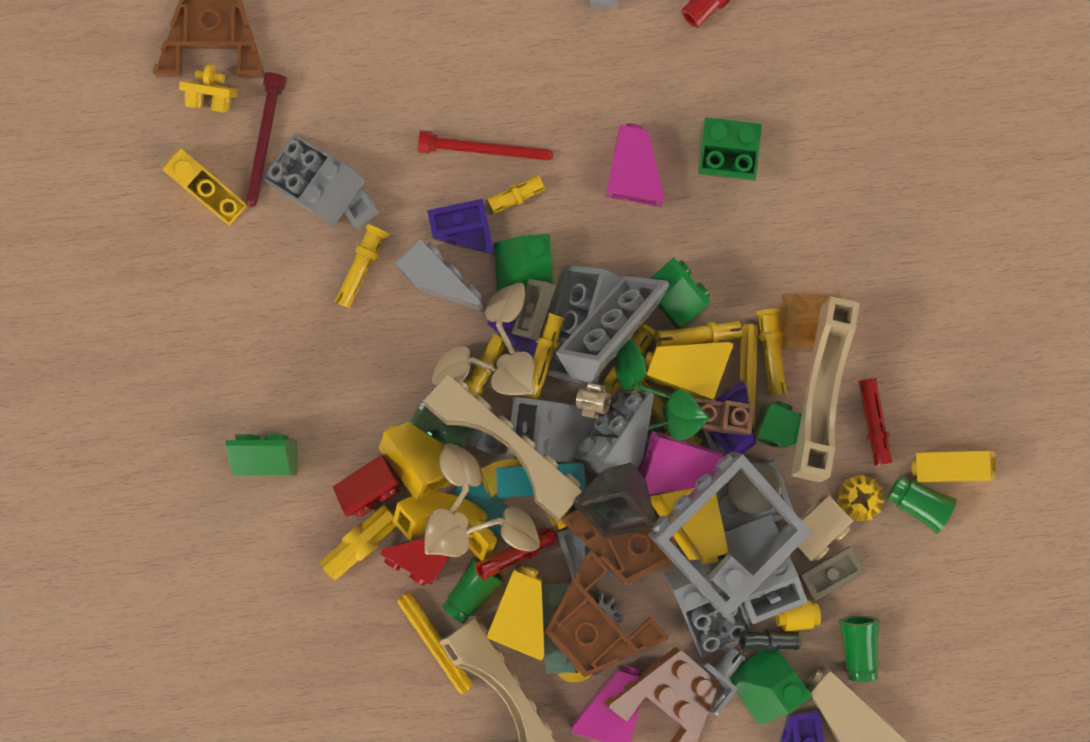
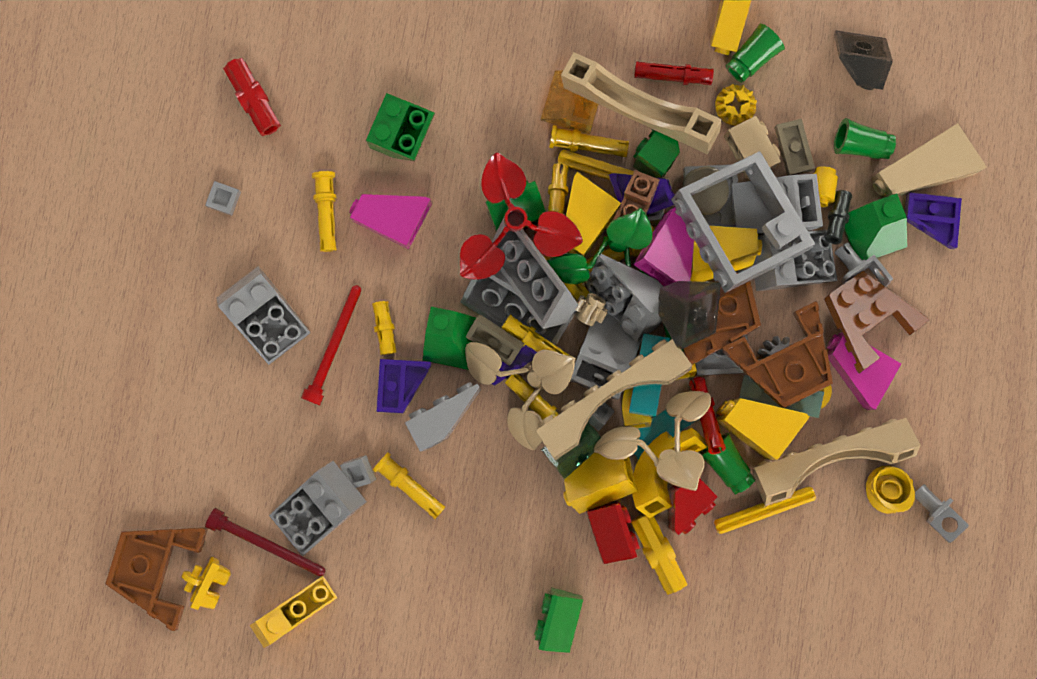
camera: 80 degrees left, 0 degrees up
(494, 67) = (262, 315): none -> light grey slope
(633, 95) = (325, 200): none -> yellow pin
(662, 337) = (554, 233): none -> red plant
(953, 623) = (865, 58): none -> clear smoke slope

